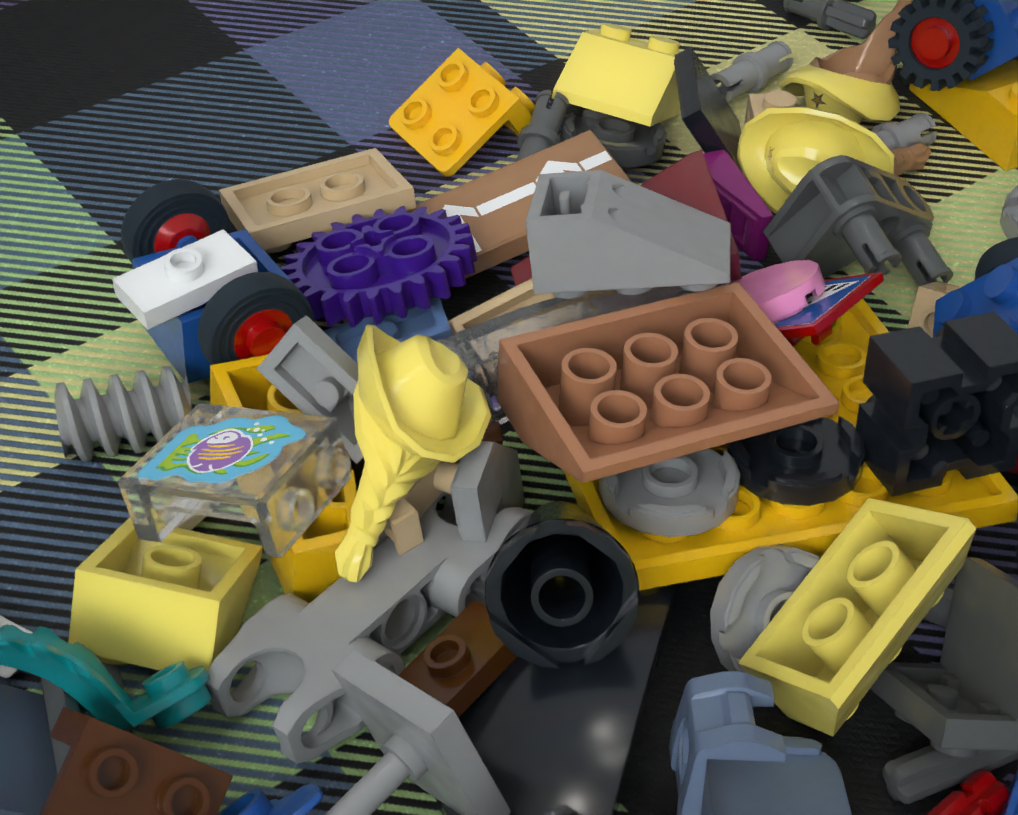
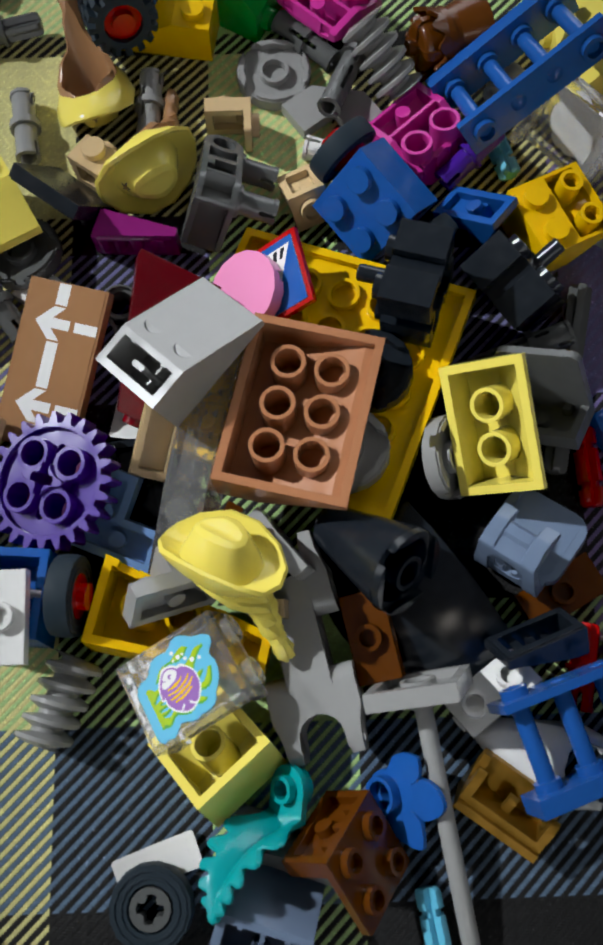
camera: 55 degrees left, 30 degrees up
(958, 206) = (232, 116): none -> tan bracket

